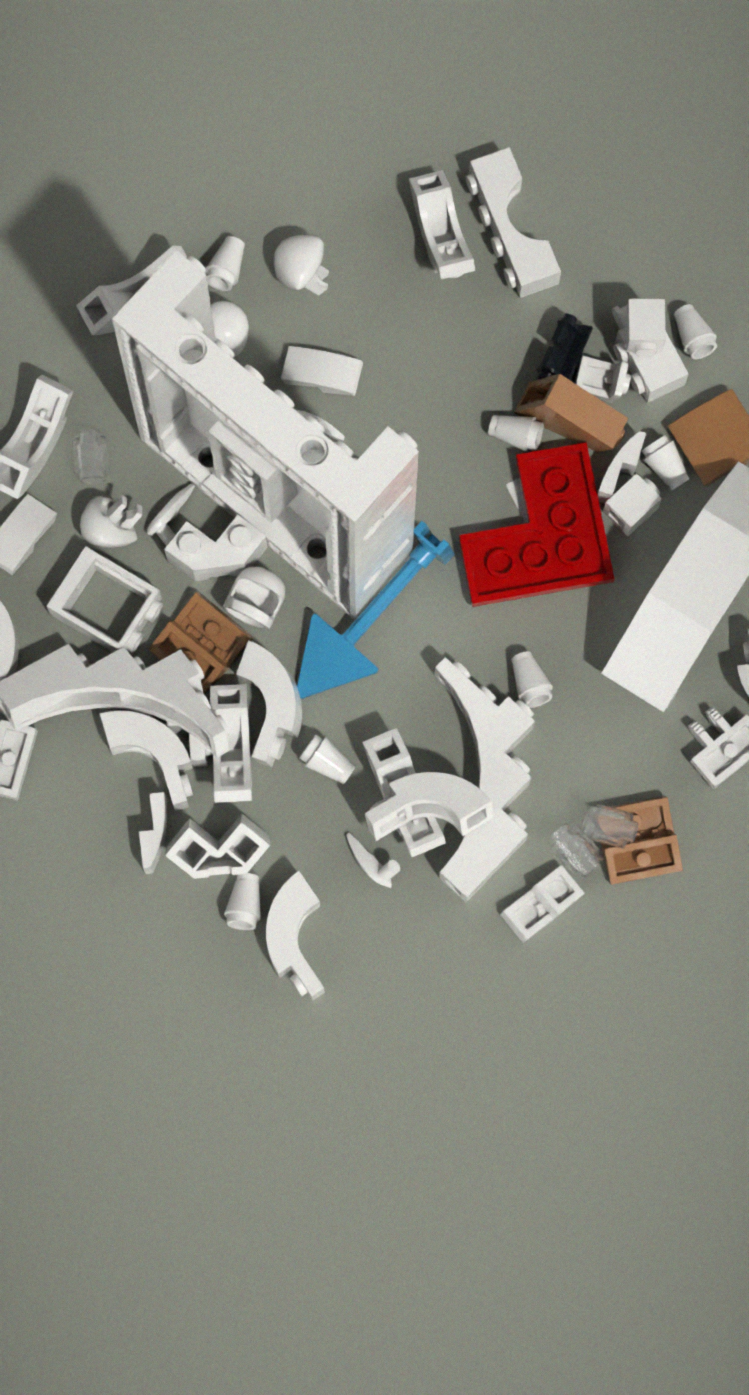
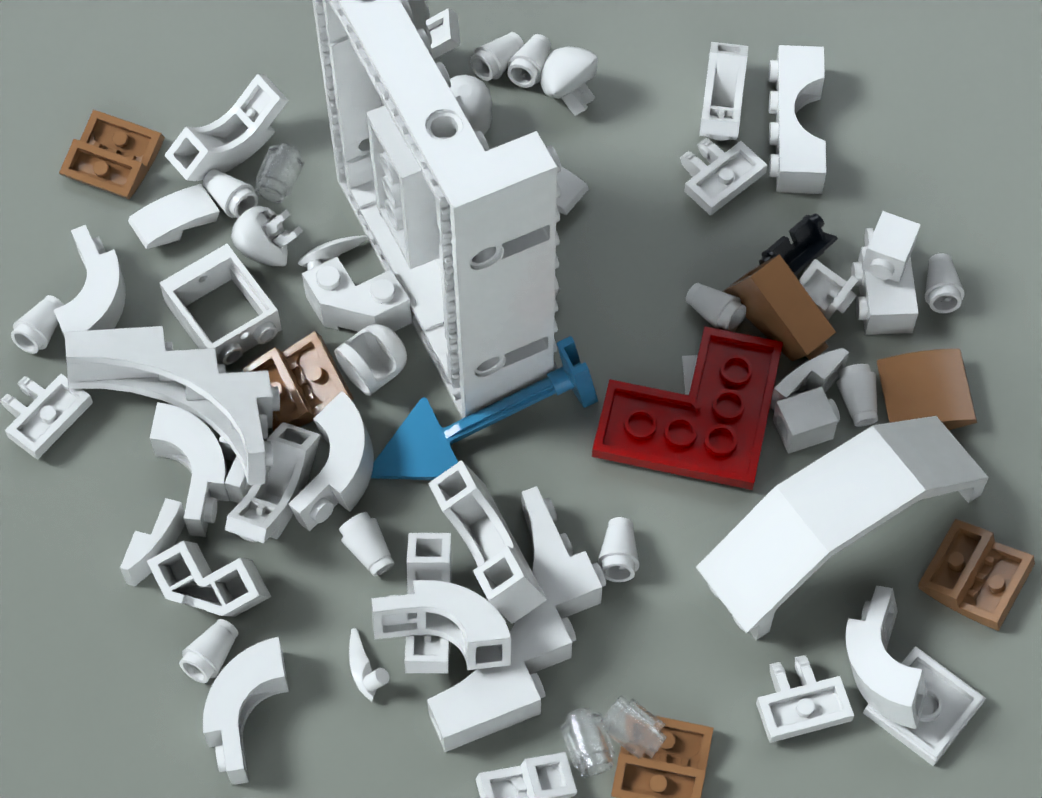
camera: 25 degrees right, 15 degrees down
(58, 493) = (230, 193): none -> white cone
(257, 258) = (528, 62): none -> white cone
(411, 706) = (500, 563): none -> white arch
(472, 306) = (724, 177): none -> white hinge

